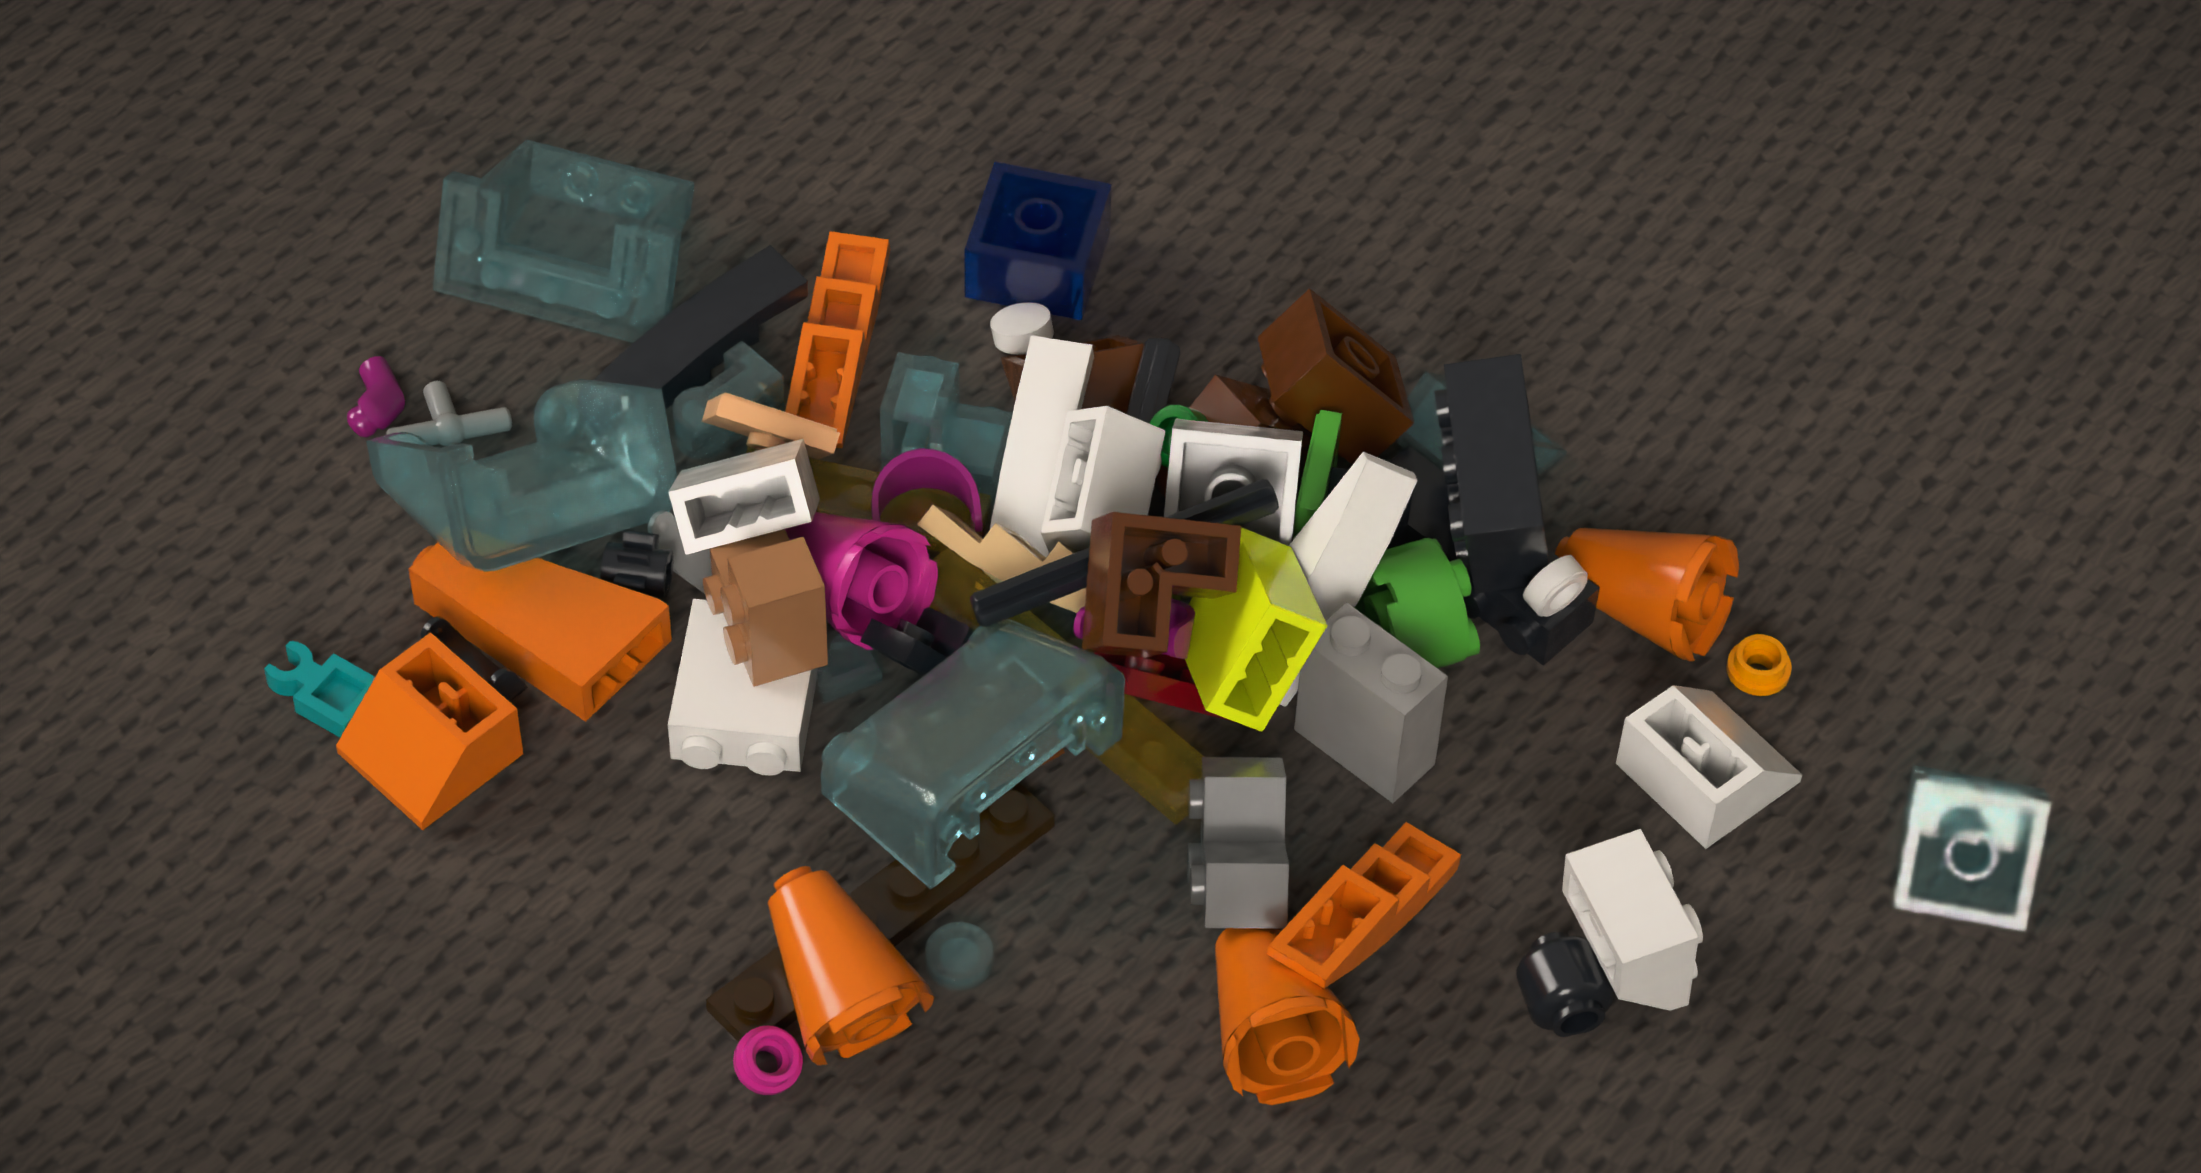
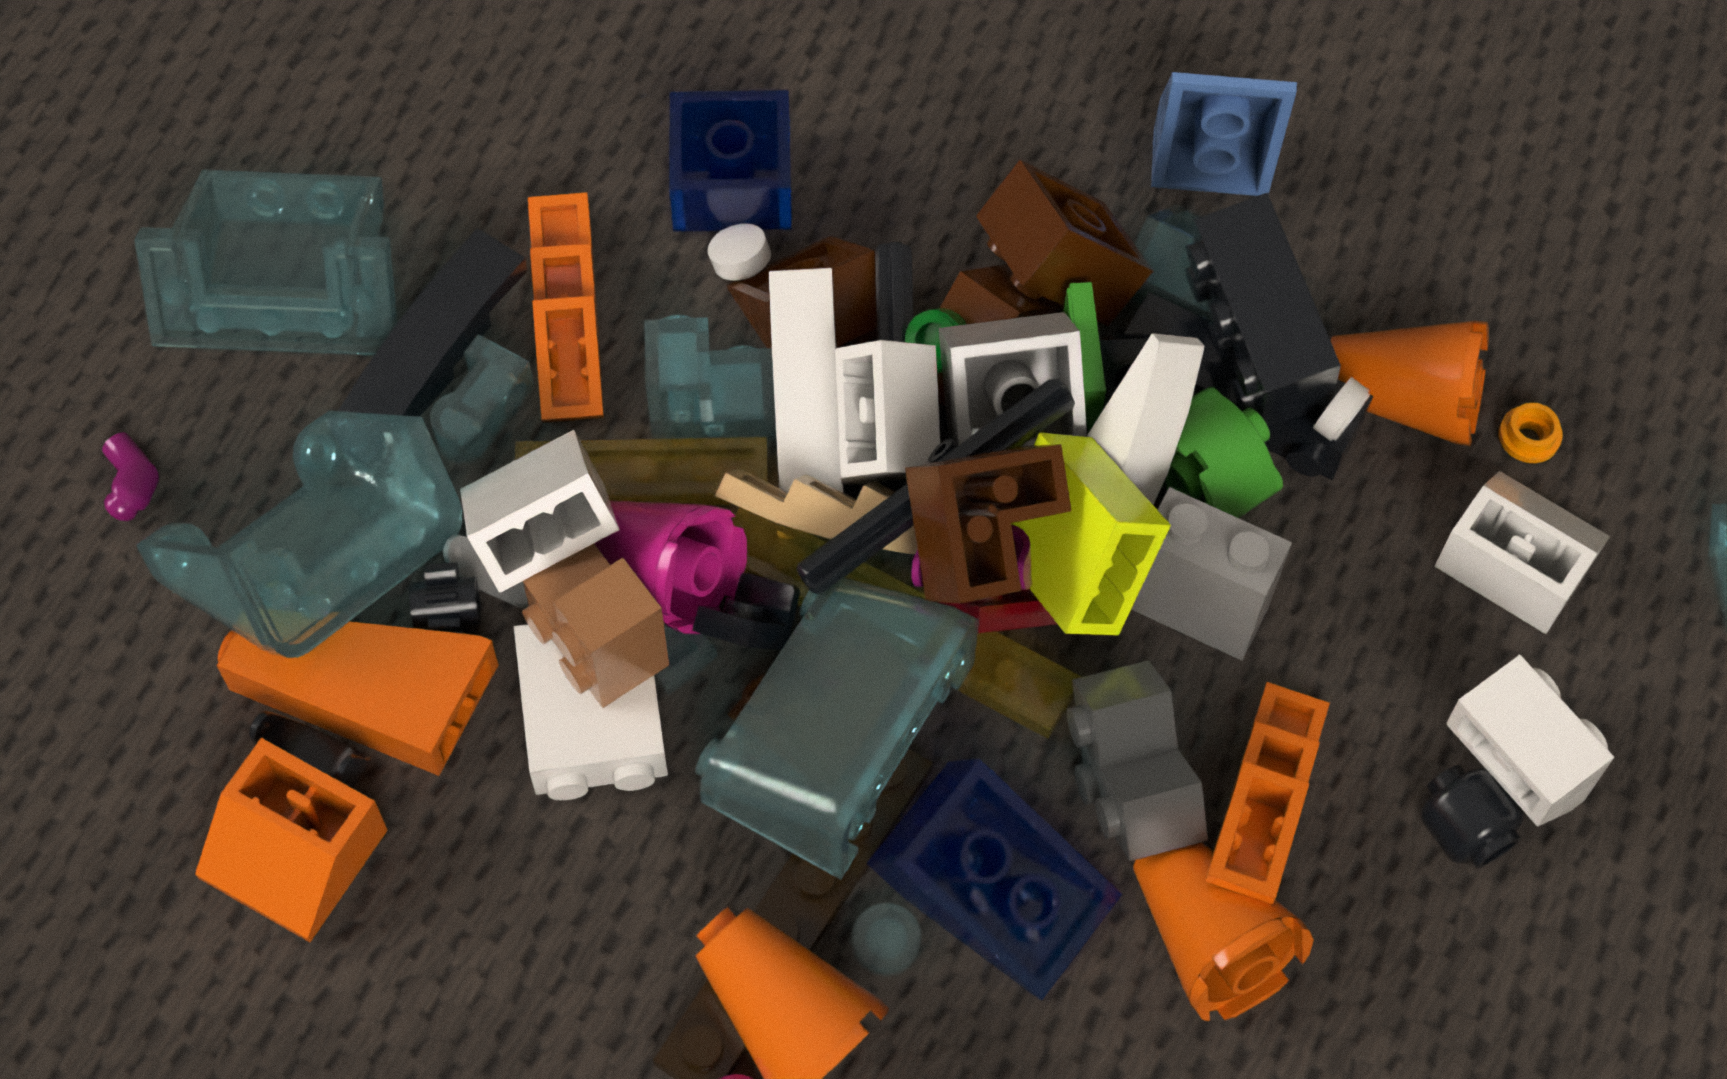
camera: 15 degrees left, 10 degrees up
(320, 693) = (171, 818): teal plate -> none
(447, 426) = (208, 490): light grey piece -> none
(768, 425) = (534, 423): light nougat plate -> none
(926, 470) = (702, 429): magenta helmet -> none
(1081, 924) = (995, 875): none -> clear blue slope
(1533, 309) = (1220, 133): none -> medium blue slope

